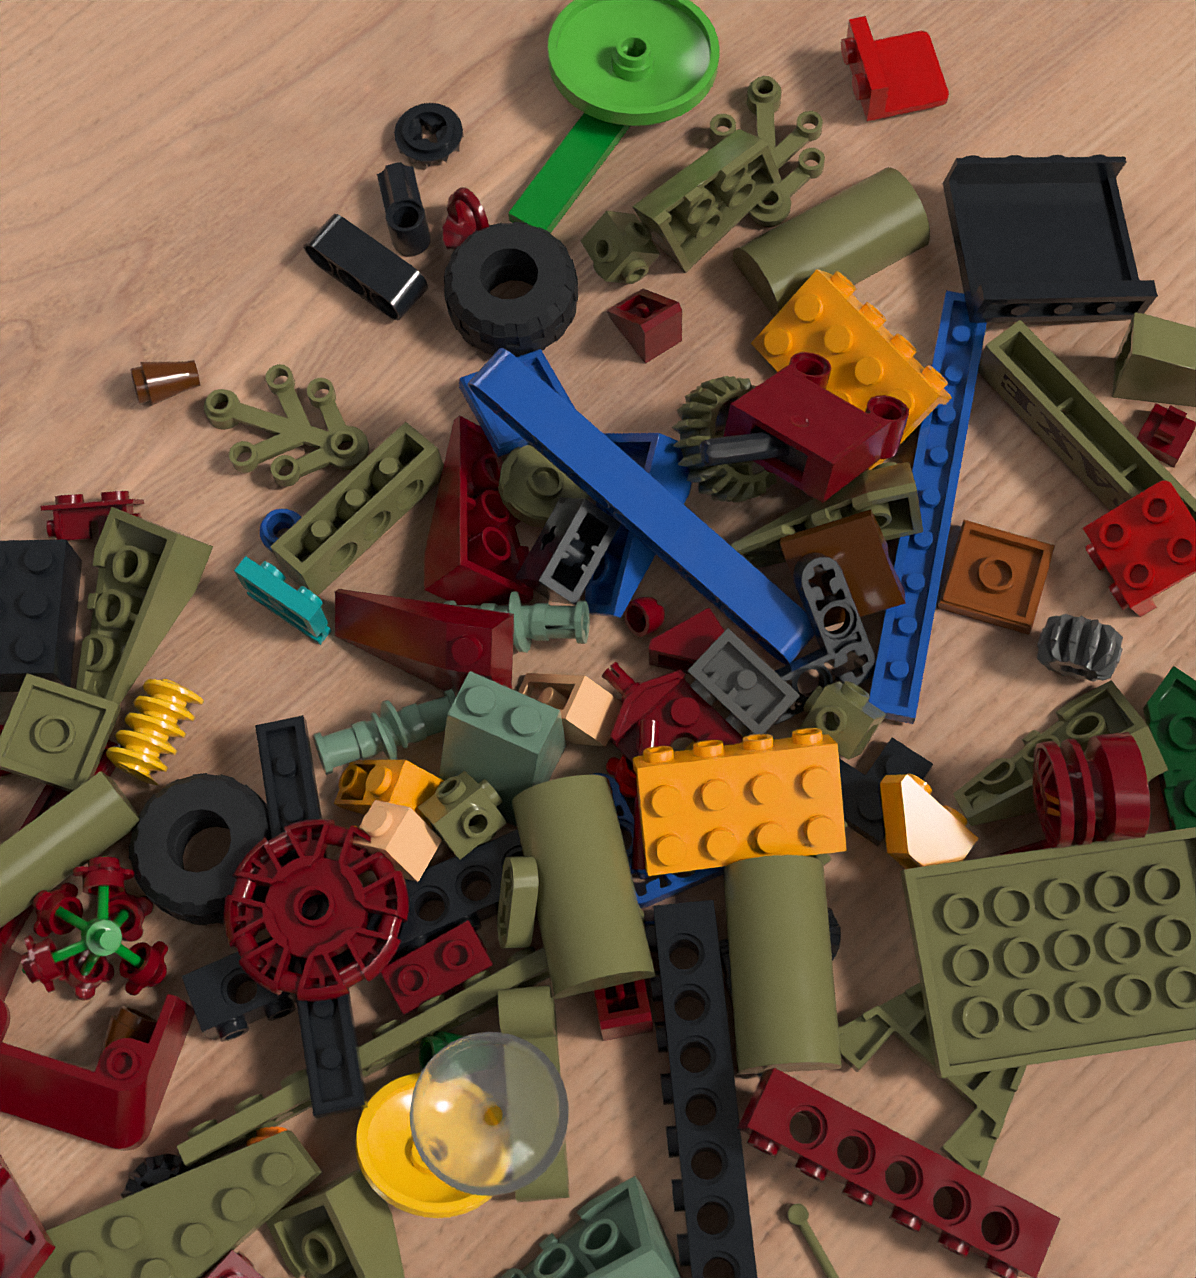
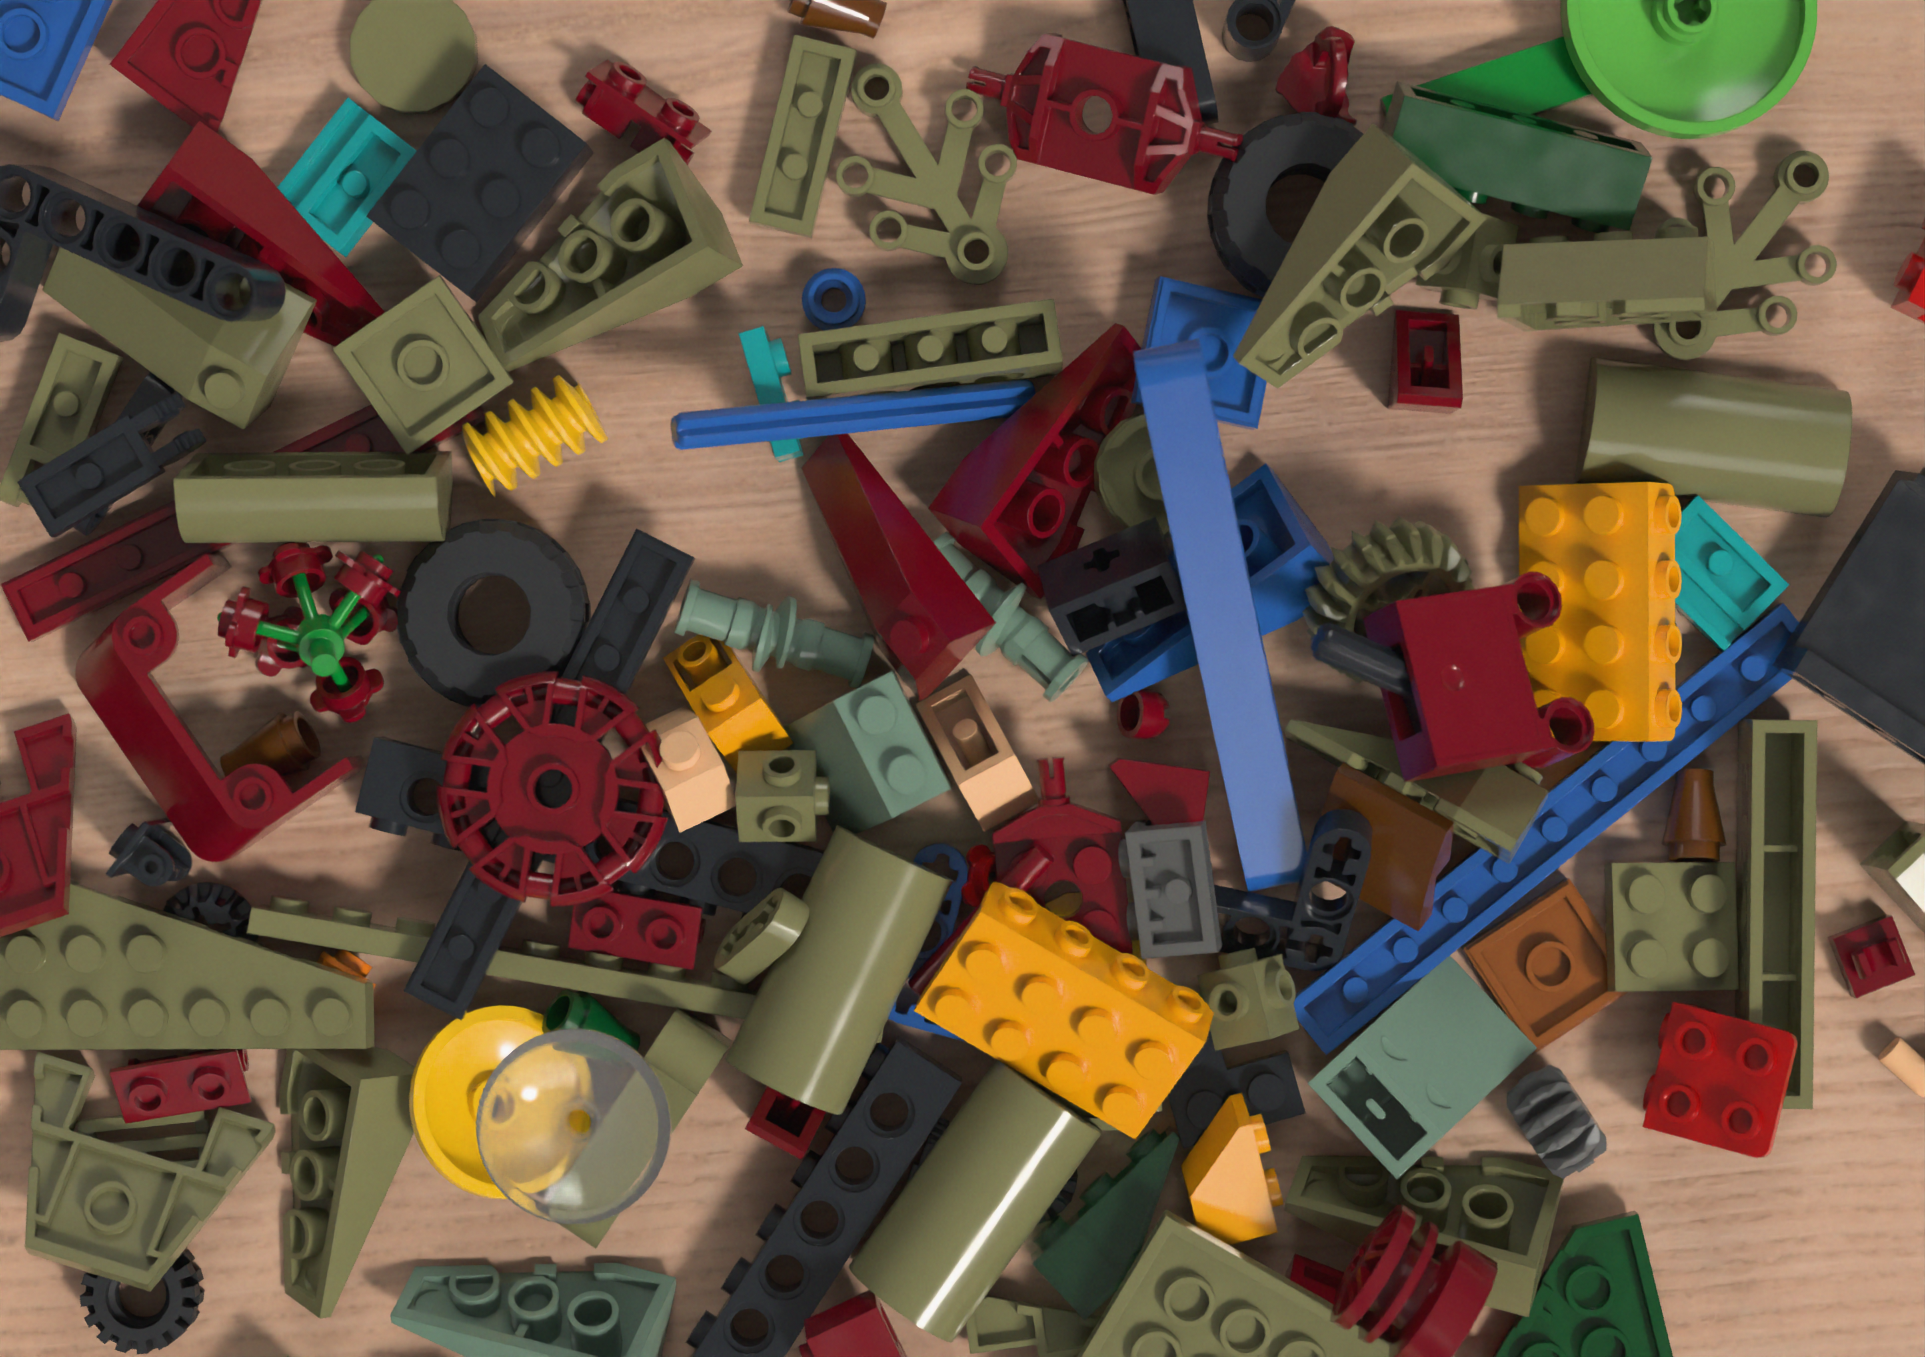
camera: 30 degrees right, 20 degrees up
(80, 1163) = (150, 854): none -> black hinge
(197, 459) = (803, 136): none -> olive plate
(330, 569) = (848, 414): none -> blue axle
(393, 318) = (1151, 103): none -> dark red plate
(554, 256) = (1364, 238): none -> olive wedge
(599, 179) = (1521, 158): none -> dark green brick
(880, 933) = (1103, 1238): none -> clear green slope
(905, 302) = (1721, 576): none -> teal plate
(975, 685) = (1422, 1066): none -> sand green slope
(1005, 438) = (1694, 819): none -> reddish brown cone
(1043, 500) = (1671, 926): none -> olive plate

